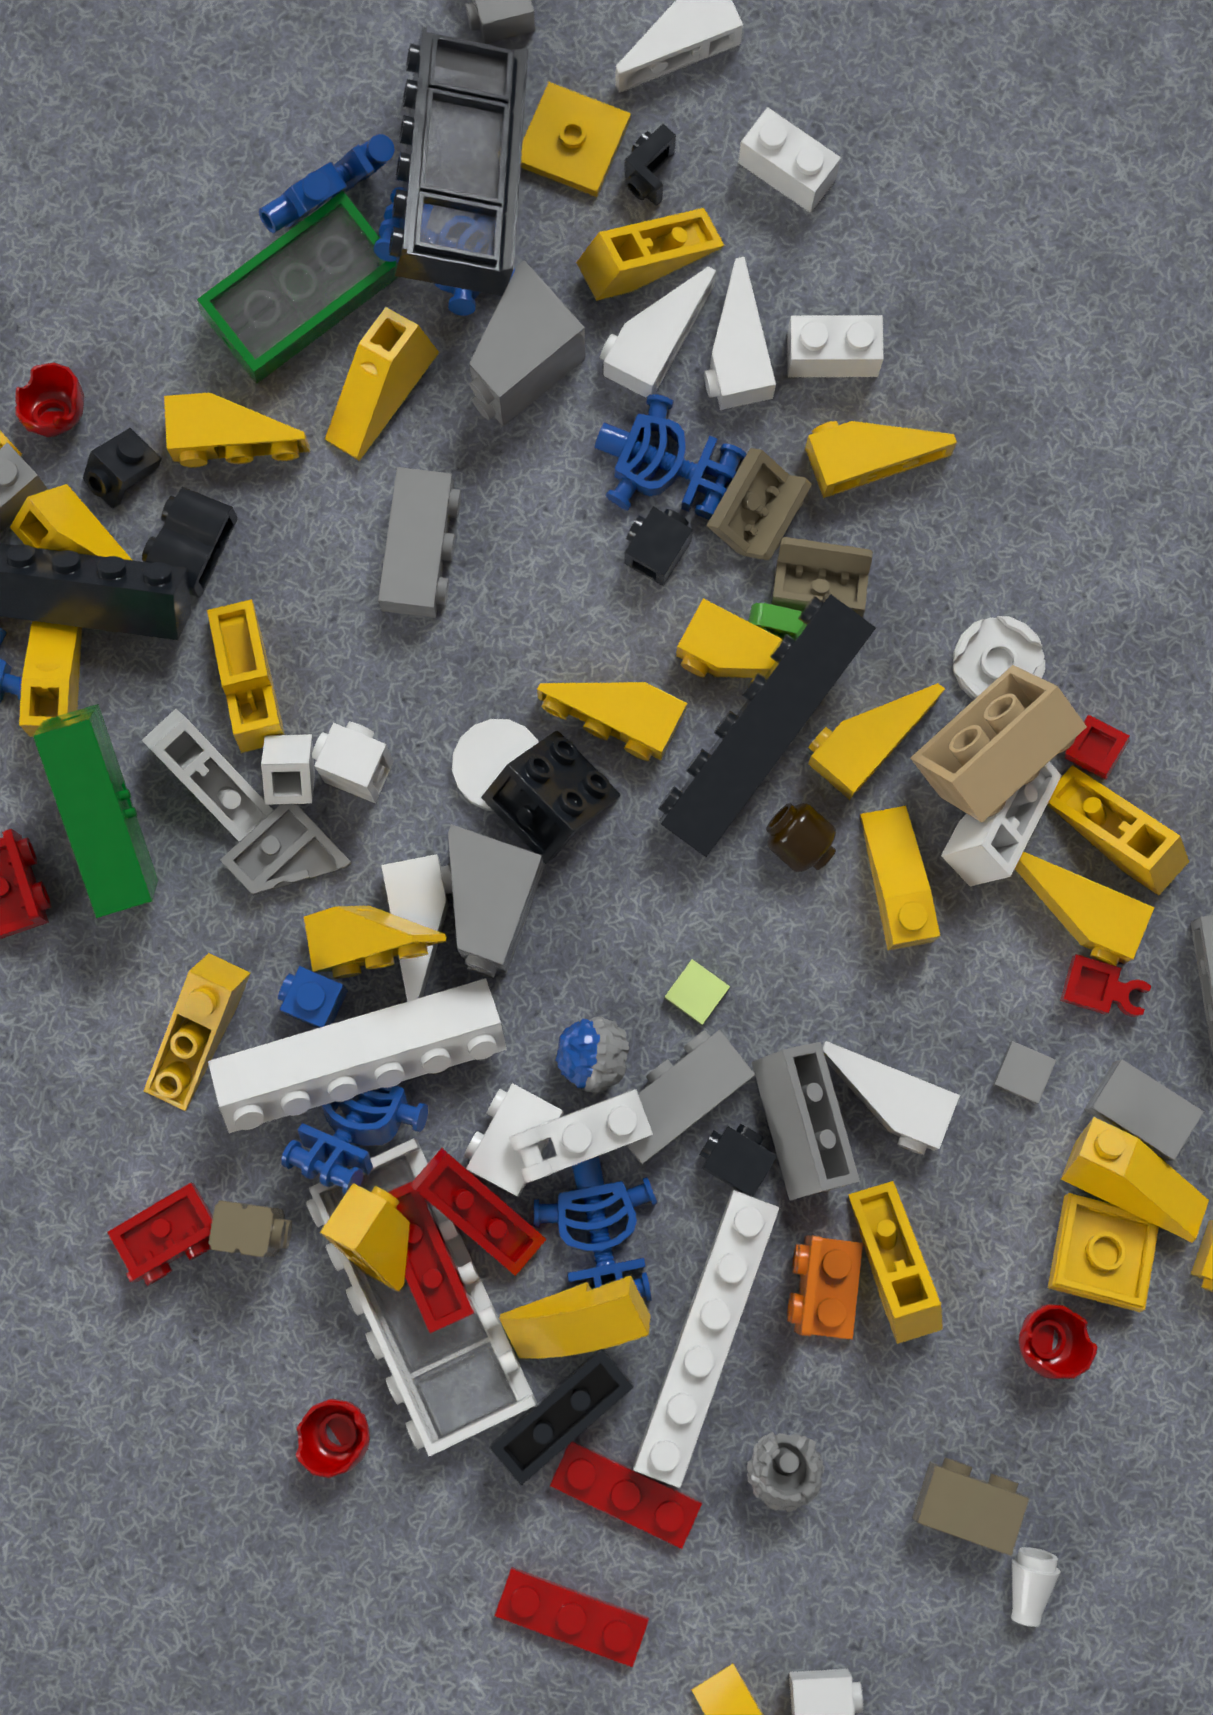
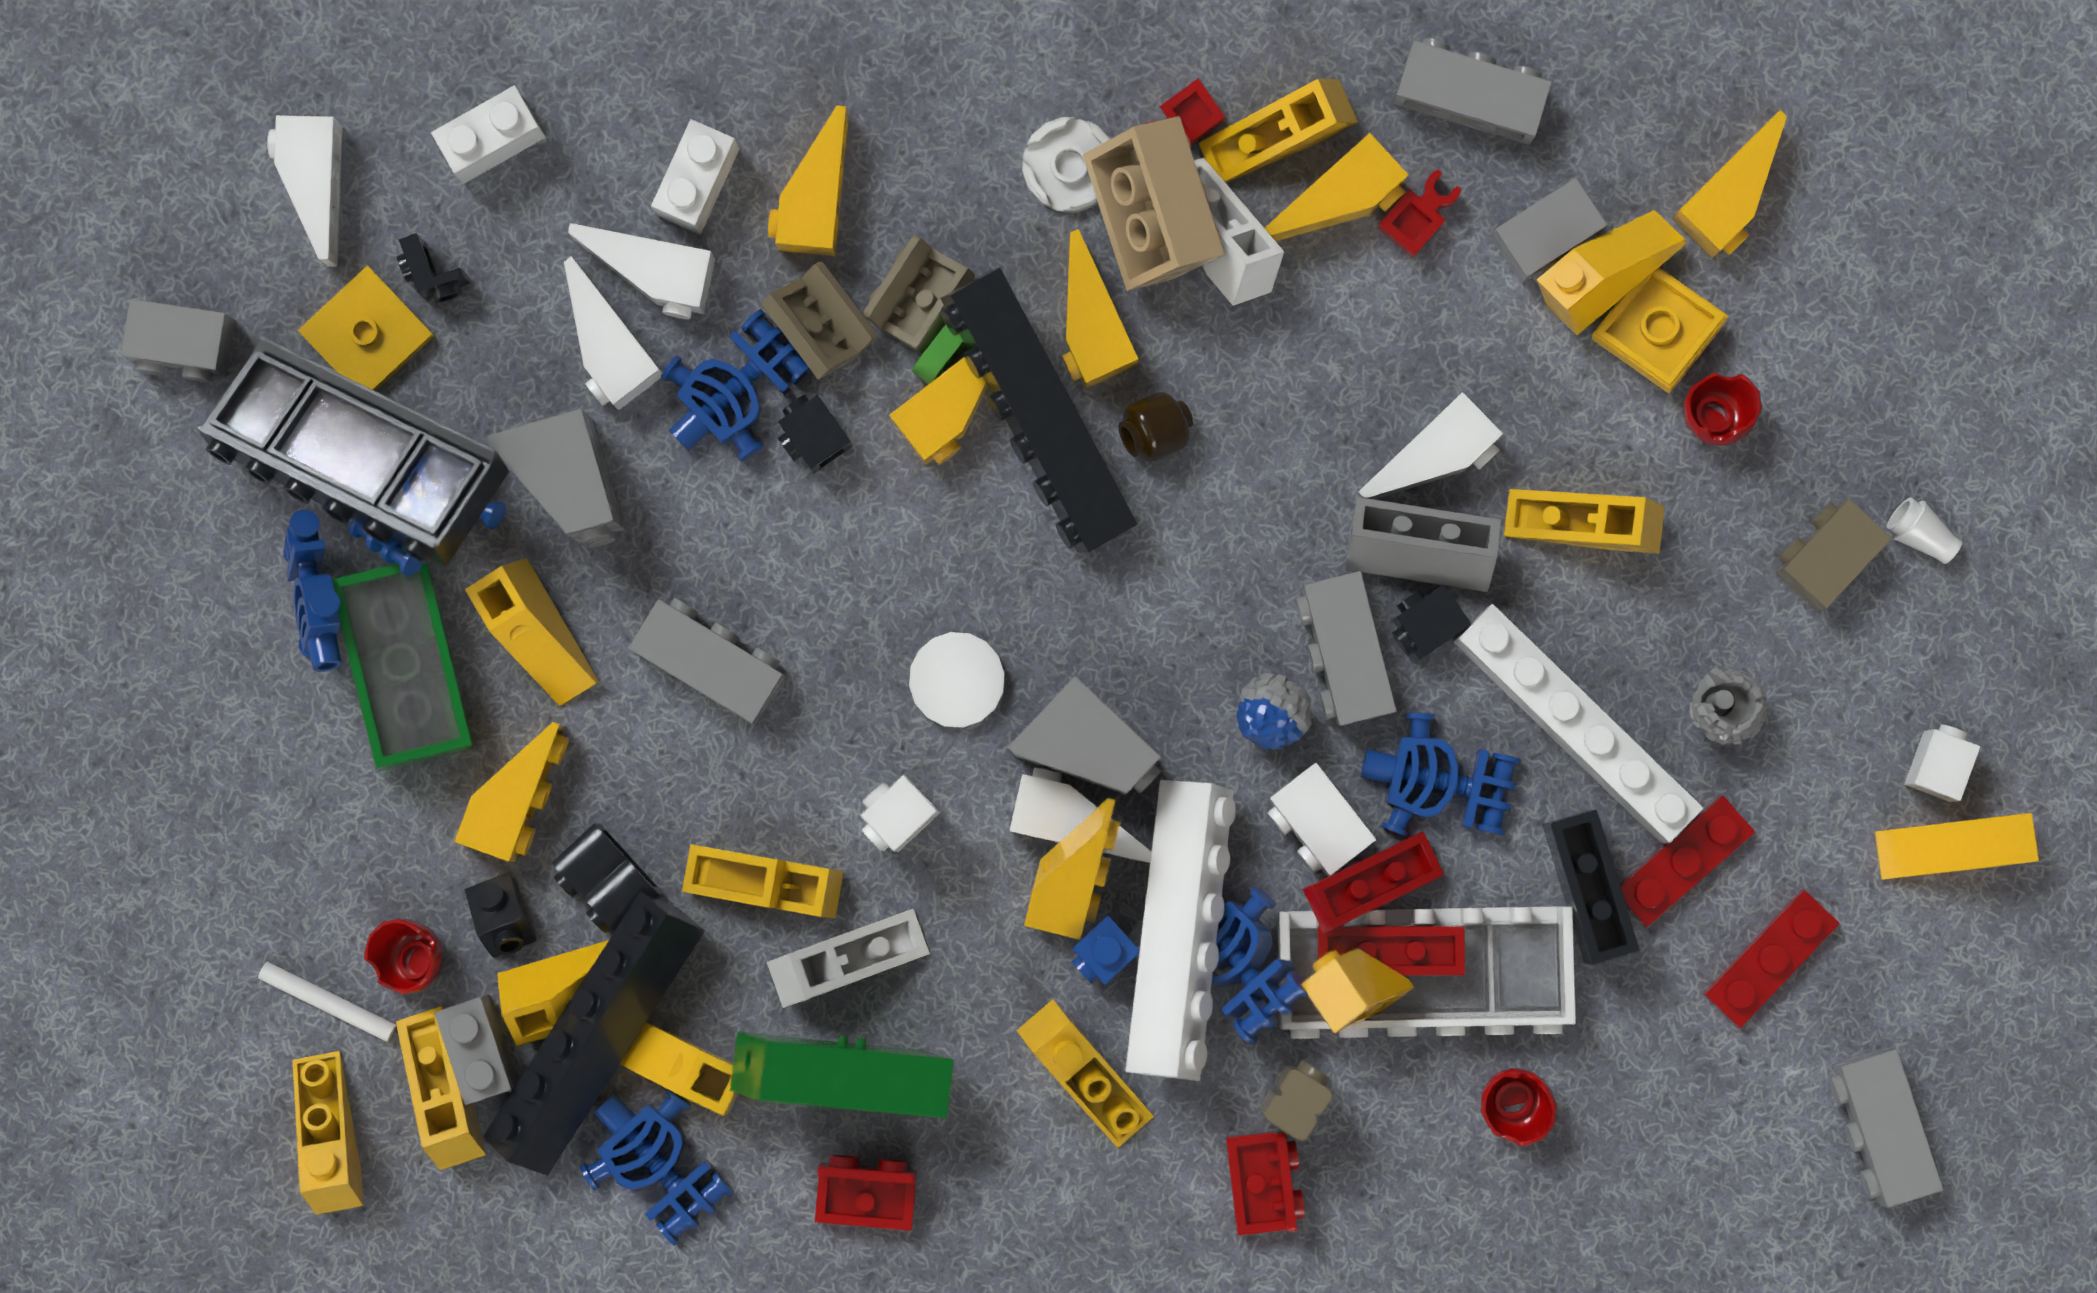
camera: 60 degrees left, 5 degrees up
(283, 852) = (950, 918): light grey wing -> none
(288, 769) = (876, 879): white brick -> none
(549, 794) = (1011, 643): black bracket -> none
(578, 1320) = (1513, 834): yellow slope -> none
(583, 1135) = (1347, 754): white plate -> none
(626, 710) = (966, 531): yellow slope -> none
(646, 251) = (517, 312): yellow slope -> none
(697, 992) = (1255, 590): yellowish green tile -> none
(826, 1287) = (1579, 593): orange bracket -> none
(899, 879) = (1234, 353): yellow slope -> none
(1024, 1072) = (1464, 322): light grey tile -> none

